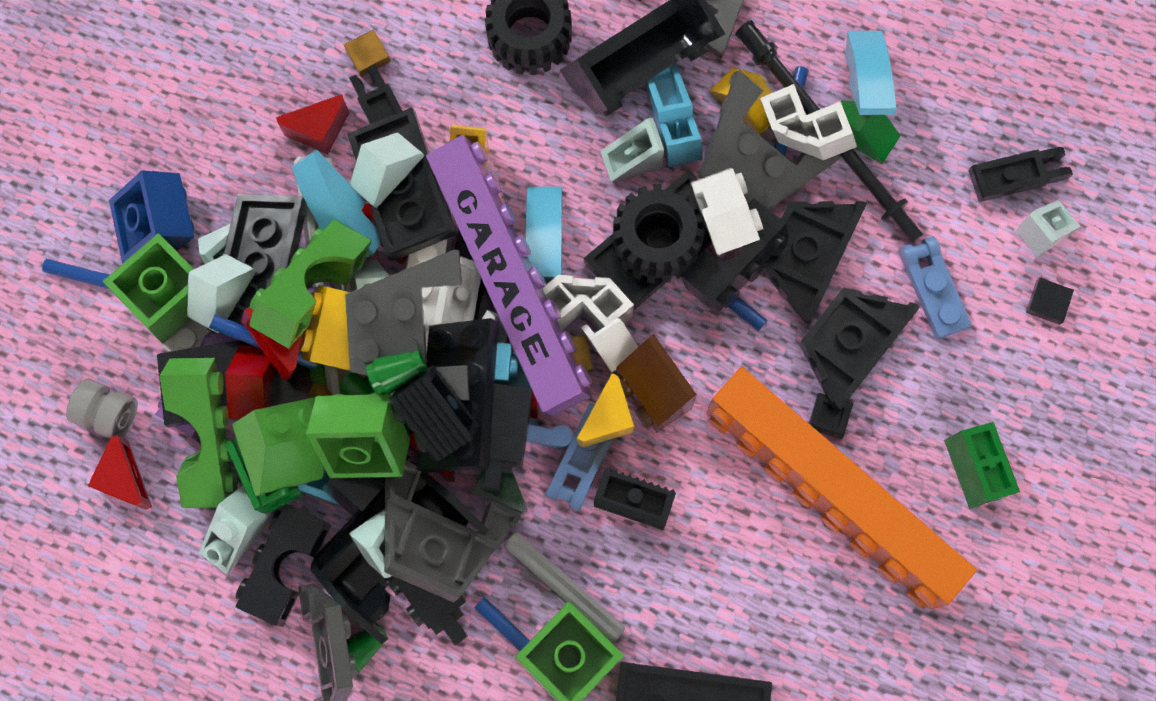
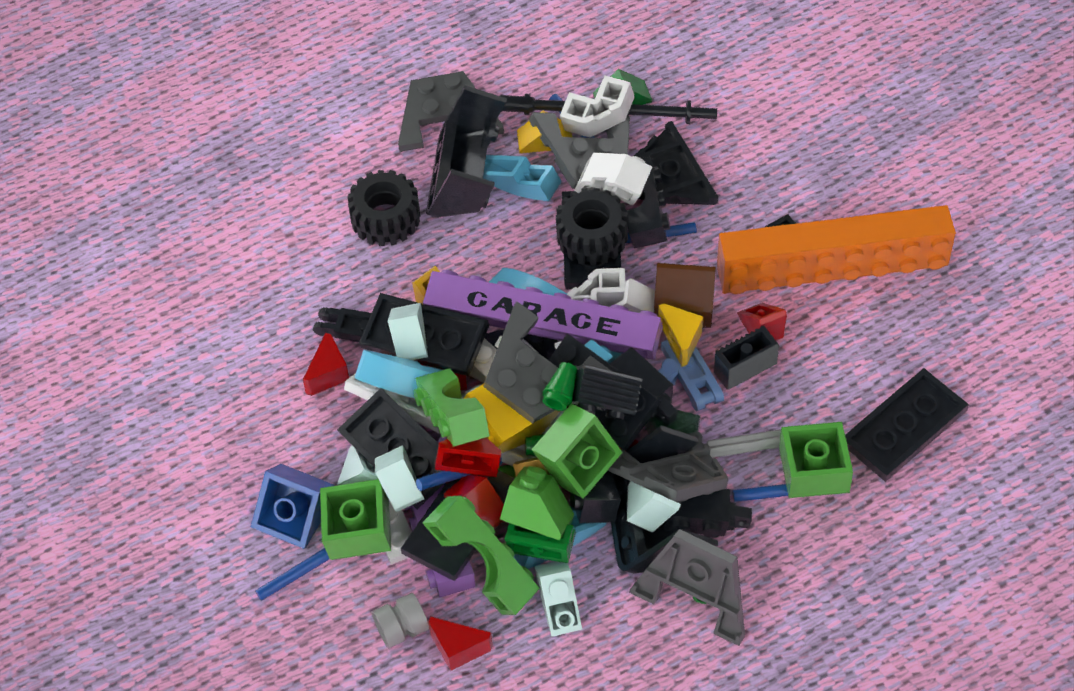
camera: 50 degrees left, 20 degrees down
(264, 592) = (618, 607): black arch -> none
(366, 52) = (304, 309): pearl gold tile -> none
(634, 152) = (522, 209): light aqua slope -> none
(699, 477) = (764, 315): none -> red slope
(852, 340) = (749, 187): black wing -> none
(870, 73) = (594, 60): medium azure slope -> none
(935, 288) = (754, 128): medium blue plate -> none
(981, 465) = (883, 177): green hinge -> none
(1017, 173) = (723, 42): black hinge -> none
(1047, 227) = (770, 53): light aqua slope -> none
(1050, 301) = (815, 81): black tile -> none

